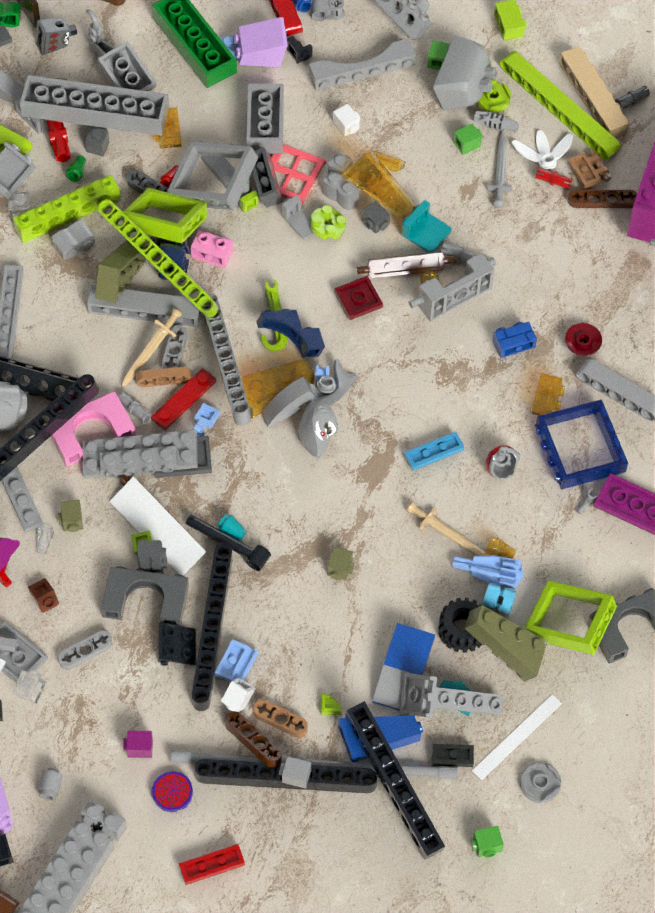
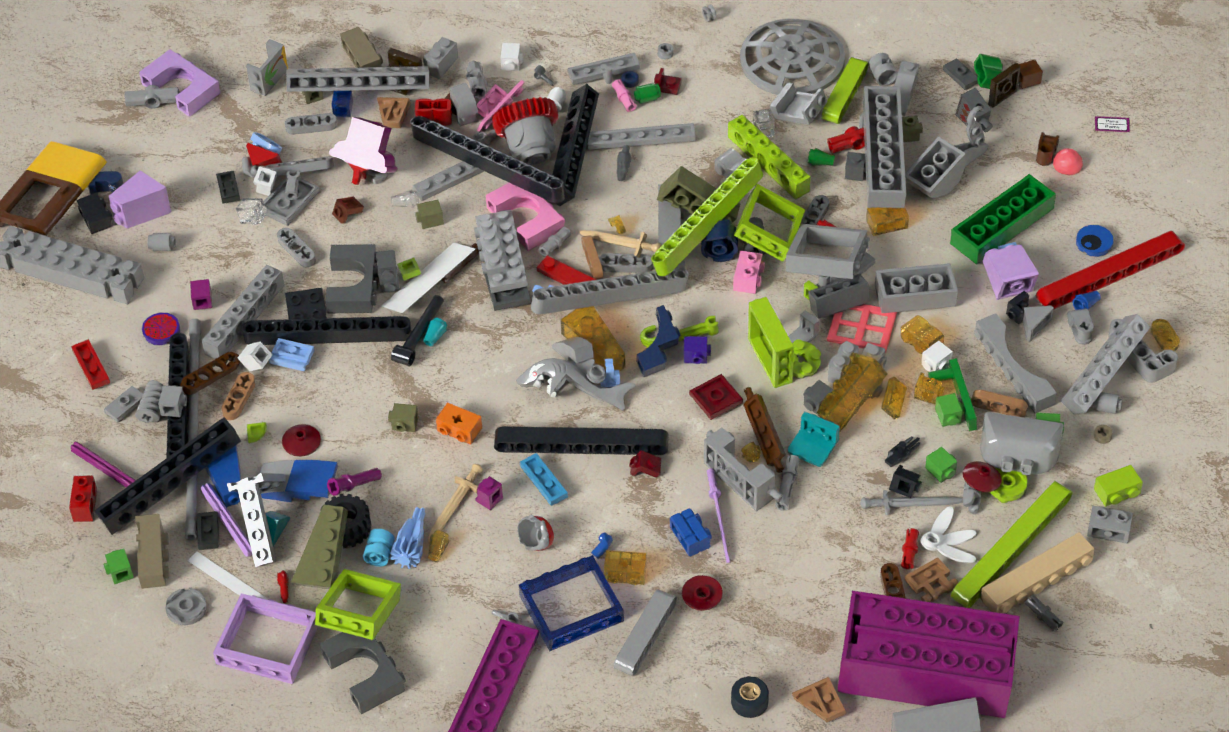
camera: 85 degrees right, 10 degrees down
(40, 334) = (623, 163): none -> dark grey piece
(121, 349) = (617, 222): none -> clear yellow tile
(172, 704) = (245, 308): none -> light grey brick
(270, 832) = (124, 404): none -> light grey plate
(280, 799) = (148, 408): none -> light grey piece
(303, 303) = (696, 349): none -> dark purple brick
(316, 223) = (770, 342): none -> lime window
(317, 126) = (920, 334): none -> clear yellow brick
(321, 43) = (1036, 319): none -> light grey slope
(343, 671) = (298, 445): none -> dark red dish
(355, 851) = (101, 464): none -> magenta axle
(356, 515) = (459, 423): none -> orange brick
(380, 133) = (928, 389): none -> clear yellow brick
(388, 109) = (954, 373): none -> green piece
(393, 415) = (580, 440): none -> black beam
(397, 873) = (83, 498): none -> red brick
(405, 85) = (1011, 406): none -> medium nougat beam
(408, 122) = (949, 410): none -> bright green brick
(423, 614) = (348, 482): none -> magenta pin
(430, 366) = (645, 463): none -> dark red bracket
(440, 737) = (227, 519): none -> lavender axle
(445, 167) = (901, 451): none -> black piece
(446, 497) = (486, 489): none -> magenta brick
(448, 15) = (1098, 436): none -> dark tan bush
(469, 315) = (715, 493): none -> lavender sword
(479, 807) = (152, 551): none -> dark tan wedge
(484, 168) = (905, 482): none -> black brick
(490, 109) = (982, 476): none -> dark red dish
(518, 410) = (605, 542): none -> blue arm
(520, 691) = (283, 582): none -> red piece
(548, 33) = (1109, 524): none -> light grey brick
(605, 676) = (258, 665): none -> lavender window

